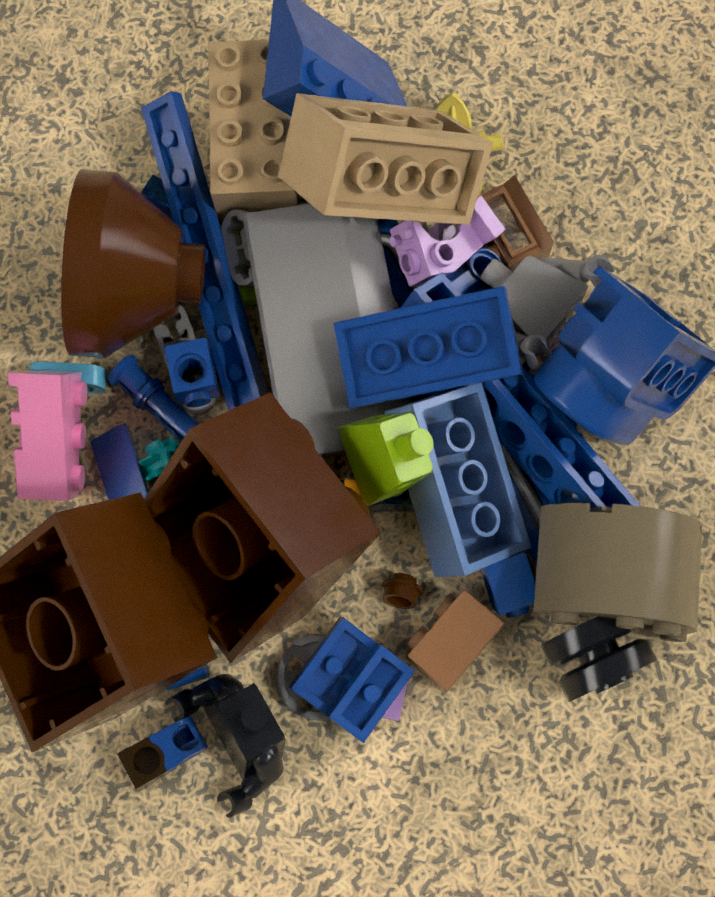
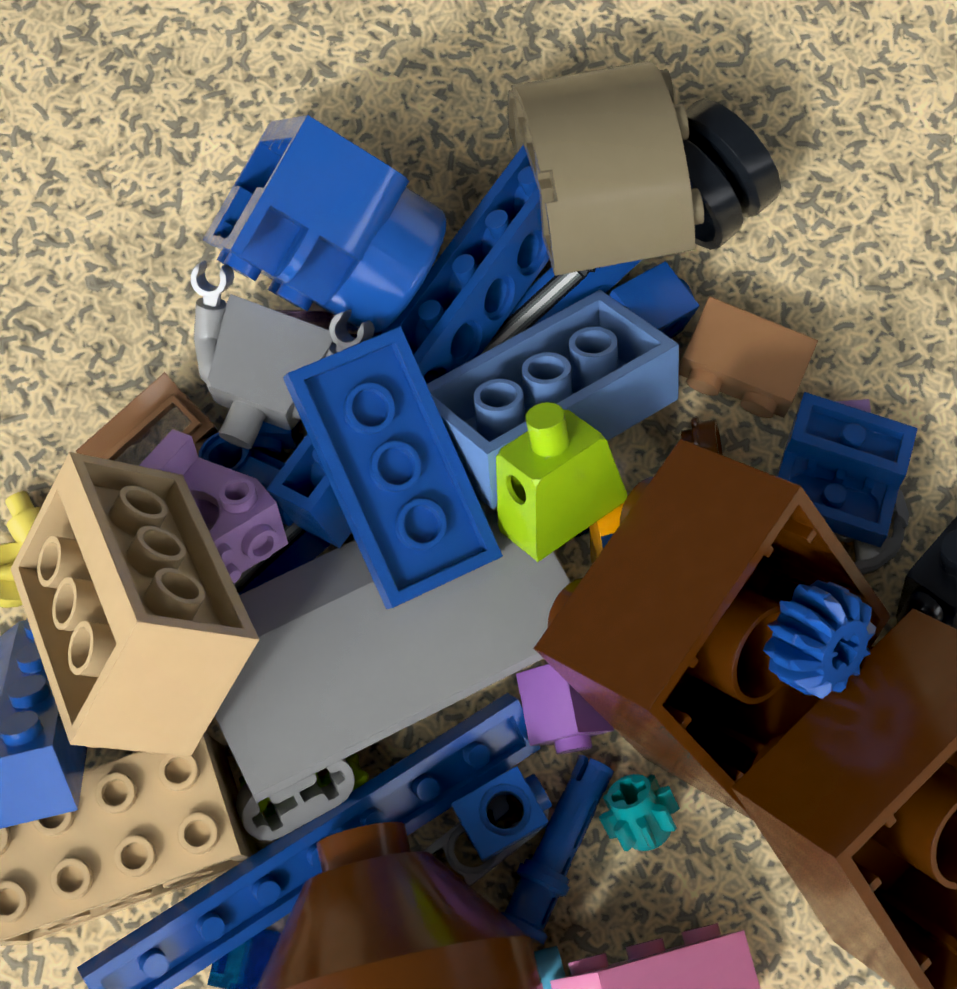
camera: 110 degrees left, 0 degrees up
(119, 463) = (666, 880): blue slope -> none
(211, 576) = (819, 638): none -> blue gear

